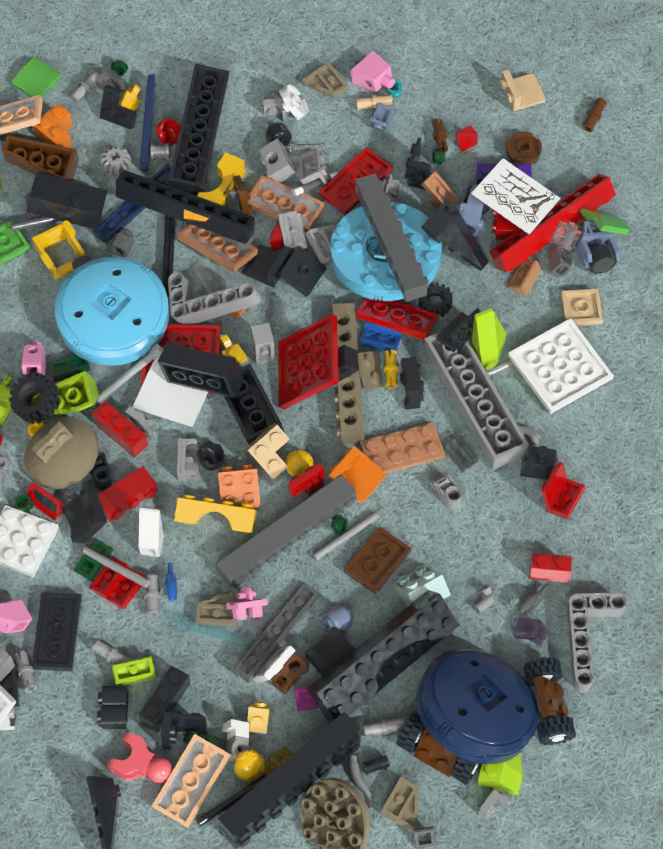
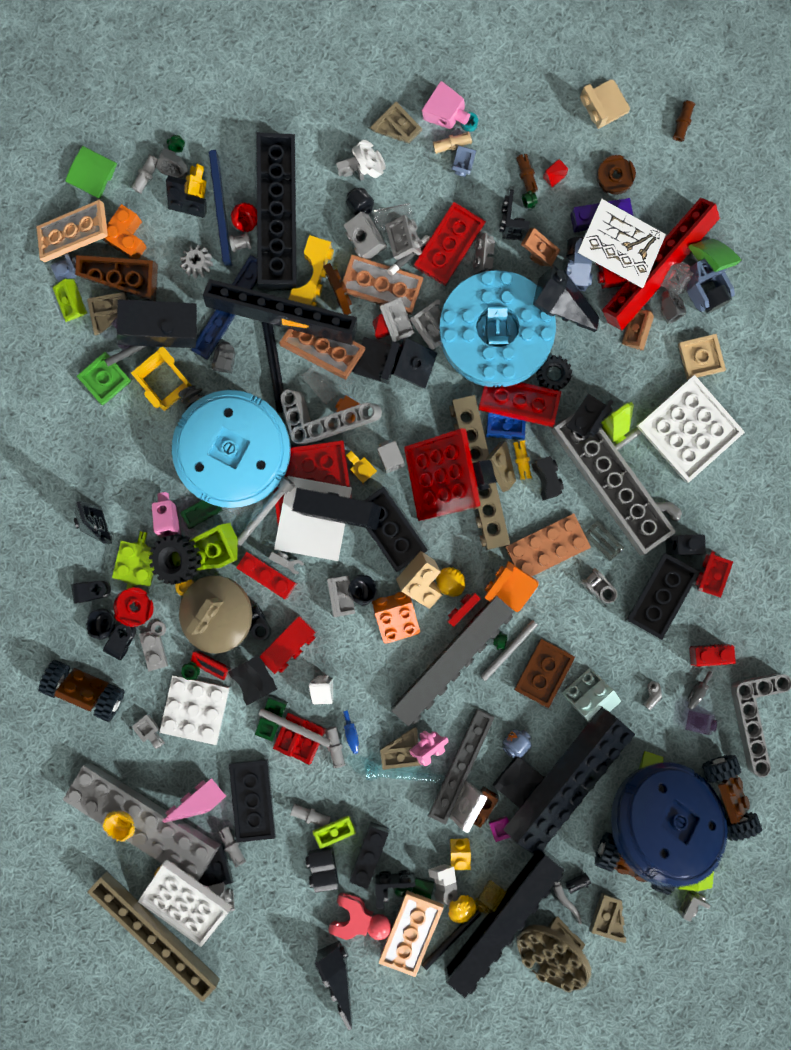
camera: 10 degrees left, 25 degrees up
(17, 187) = (104, 310): none -> dark tan wing
(190, 511) = (402, 652): yellow arch -> none
(384, 727) = (579, 844): light grey pin -> none
(391, 237) = (503, 320): dark grey brick -> none
(424, 837) = (633, 945): dark grey slope -> none
(506, 506) = (662, 596): none -> black brick

